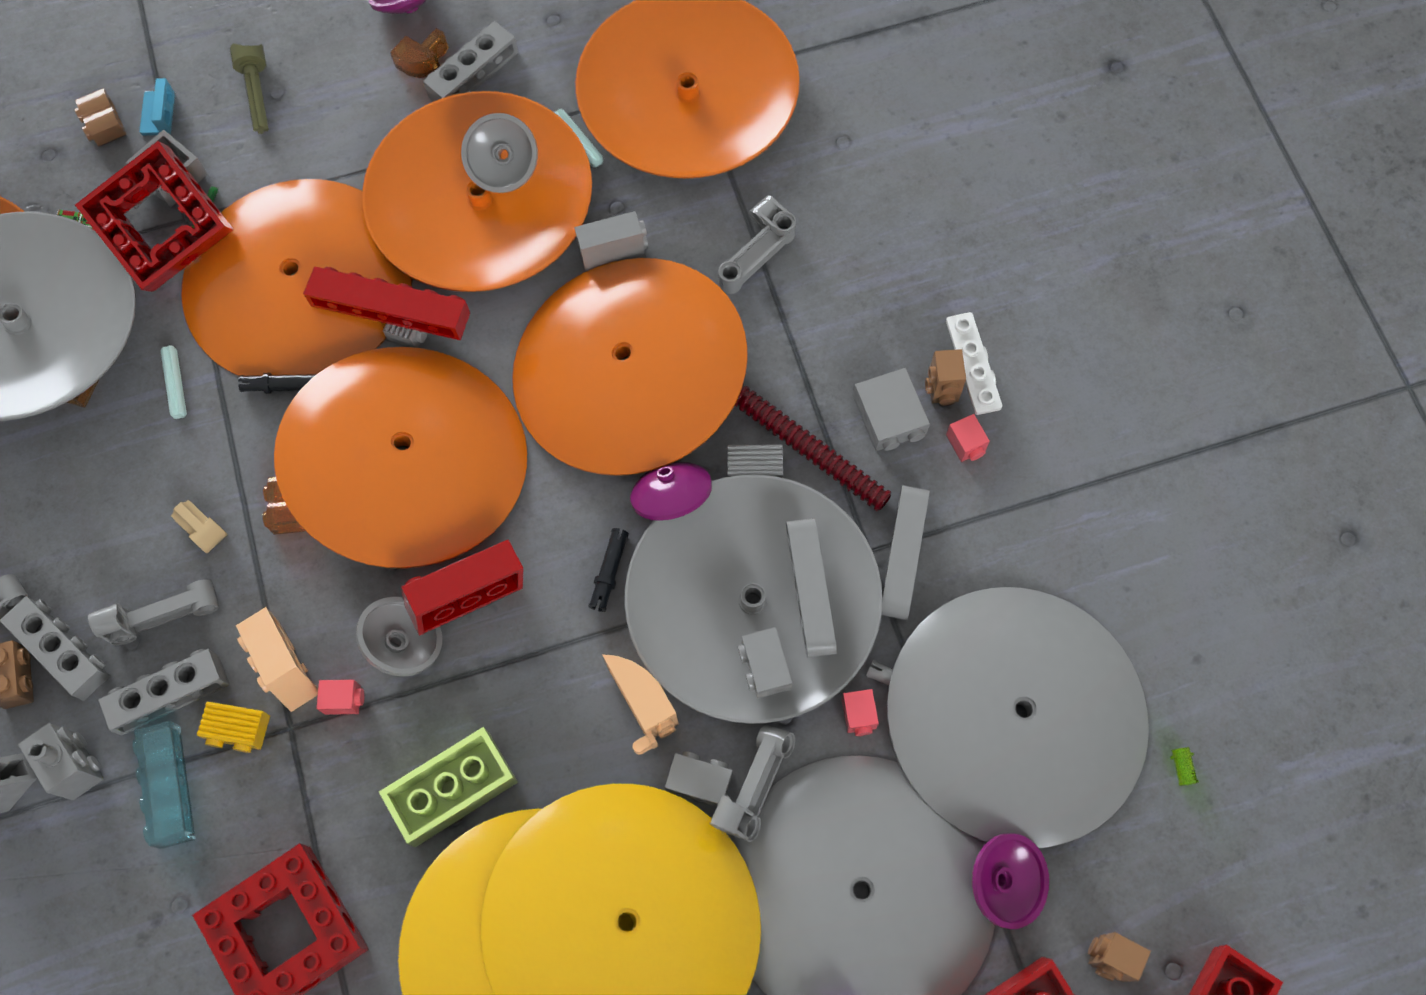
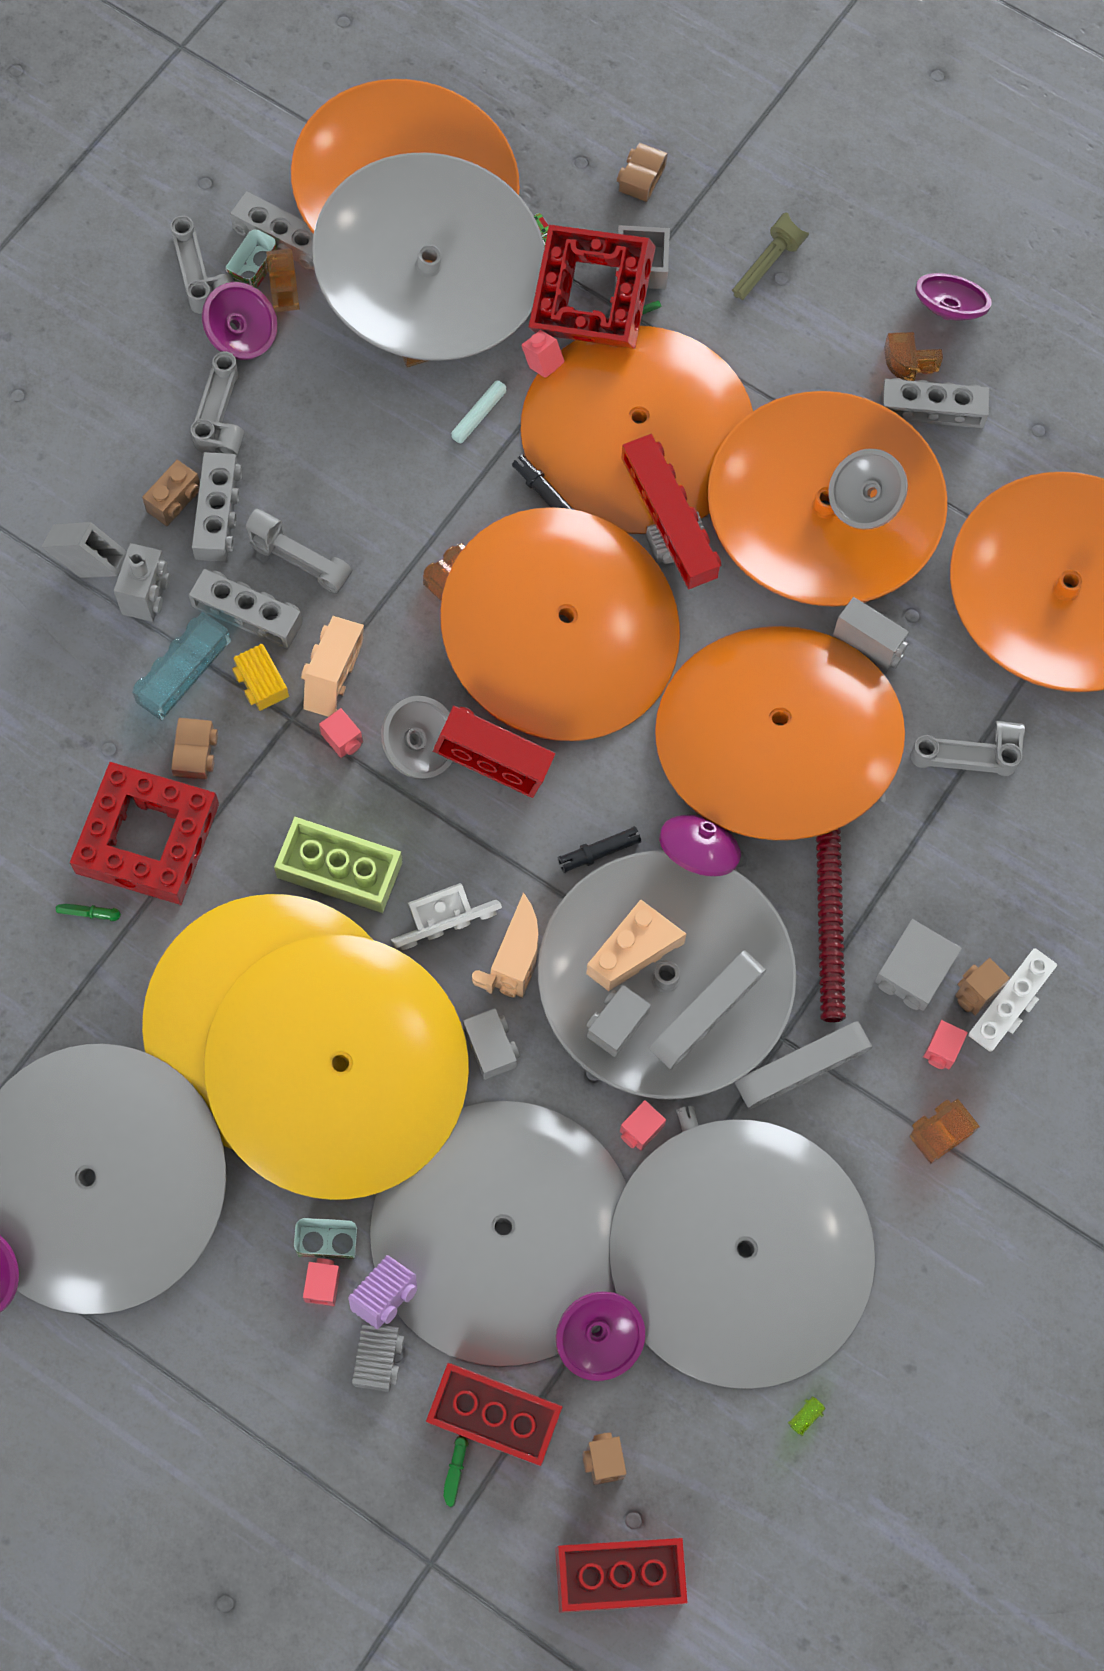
camera: 45 degrees right, 0 degrees up
(157, 109) = (686, 206): medium azure panel -> none
(173, 297) = (542, 353): none -> coral brick
(202, 530) = (384, 531): tan piece -> none
(244, 831) = (193, 748): none -> medium nougat brick
(558, 734) = (442, 911): none -> white bracket
(594, 157) = (942, 551): light aqua axle -> none
(714, 600) = (634, 945): none -> light nougat wedge
(742, 817) = (489, 1096): light grey piece -> none
(755, 460) = (781, 891): light grey brick -> none
(1033, 490) = (943, 1130): none -> clear orange brick

